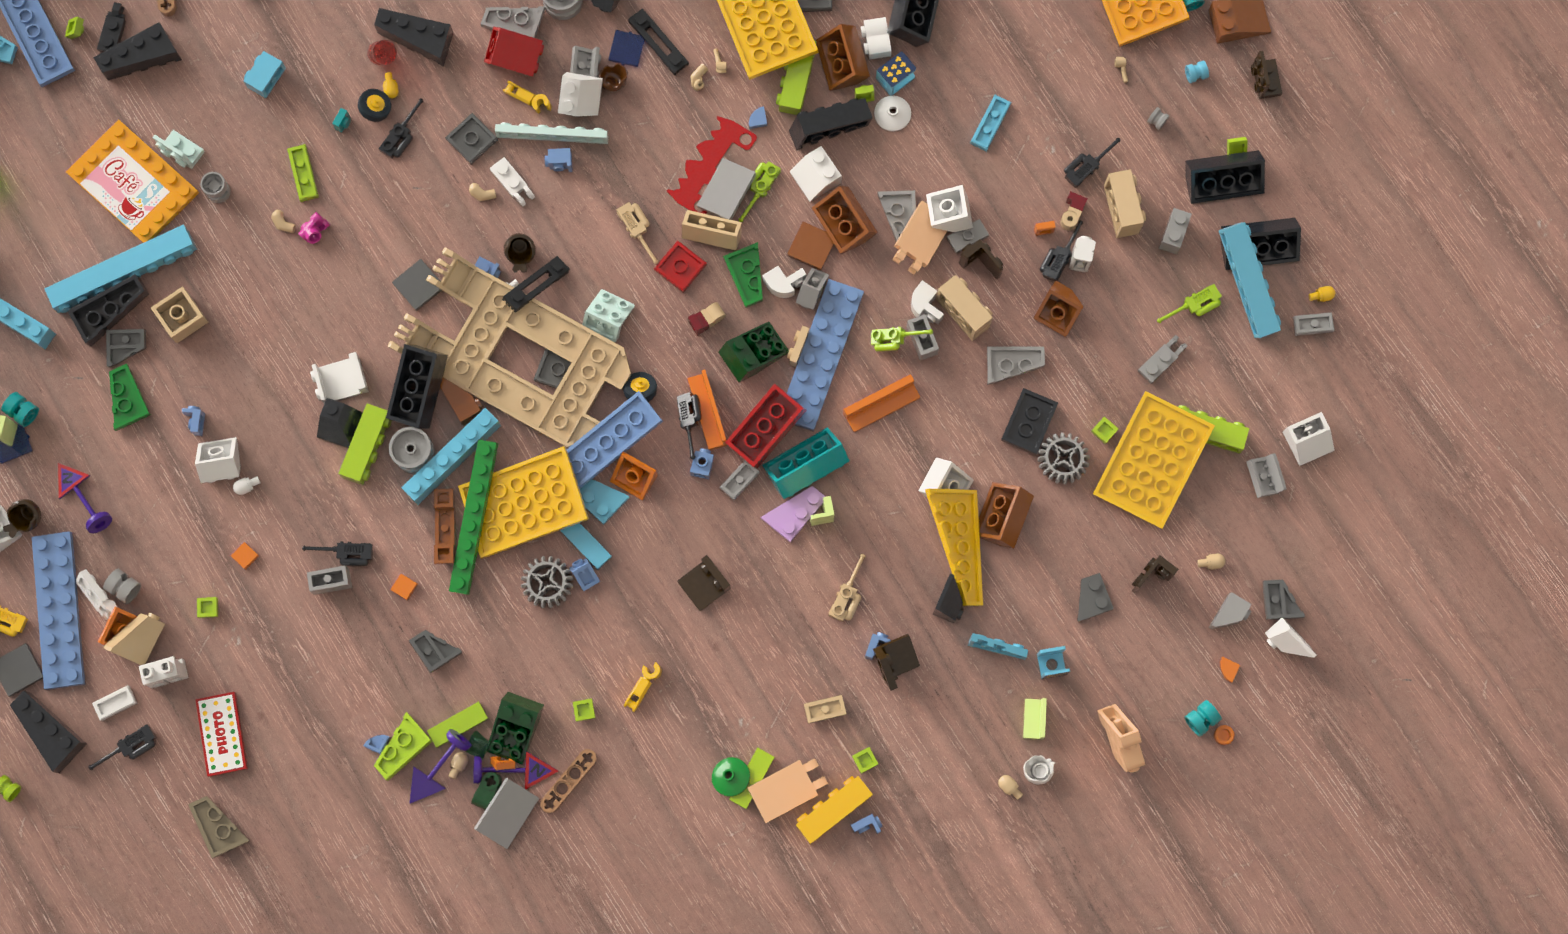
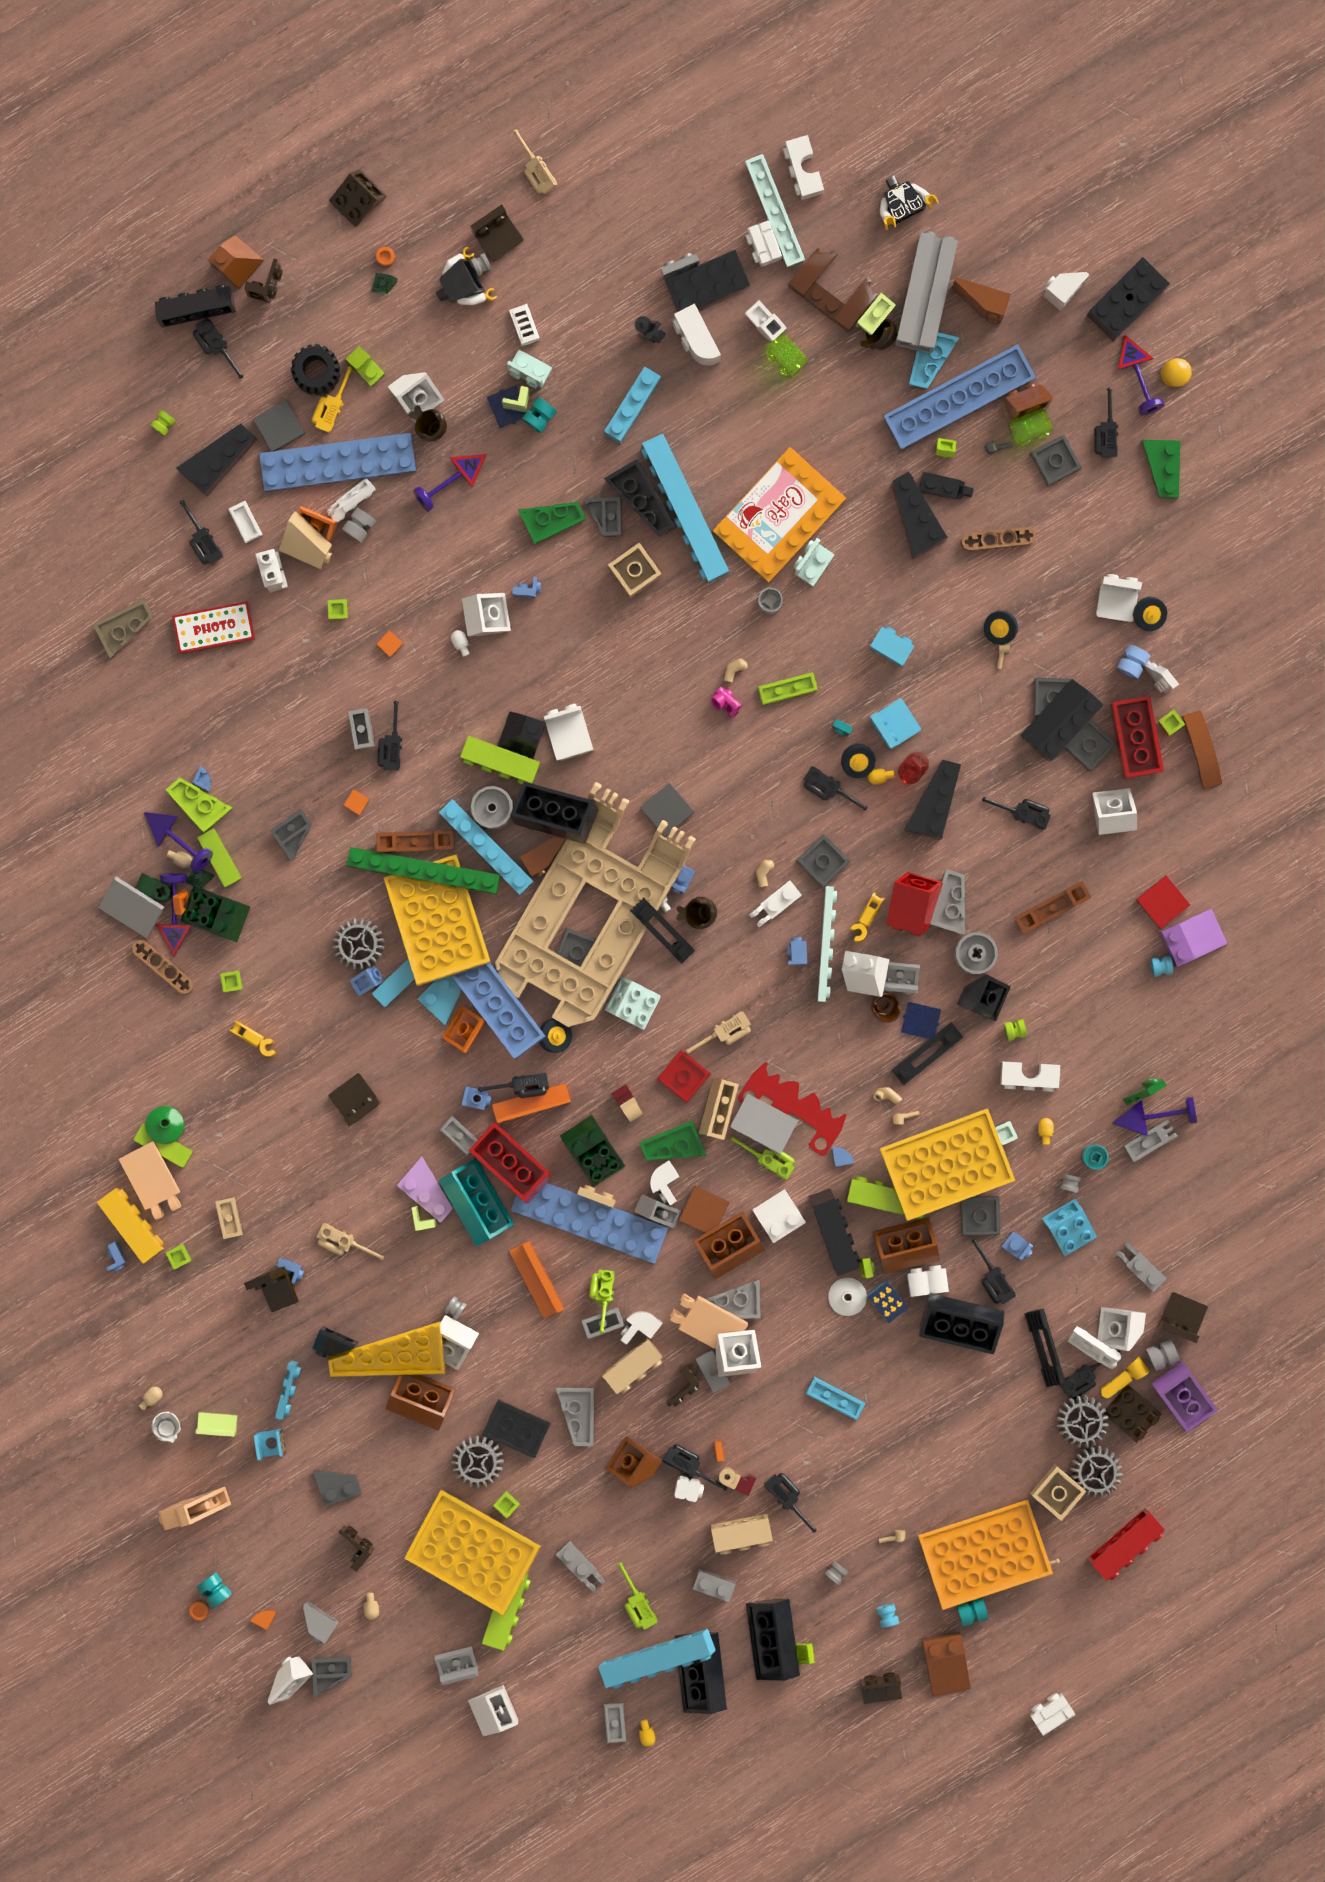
camera: 85 degrees right, 10 degrees up
(340, 73) = (895, 724): none -> medium azure bracket
(911, 482) = (455, 1308): none -> light grey wheel

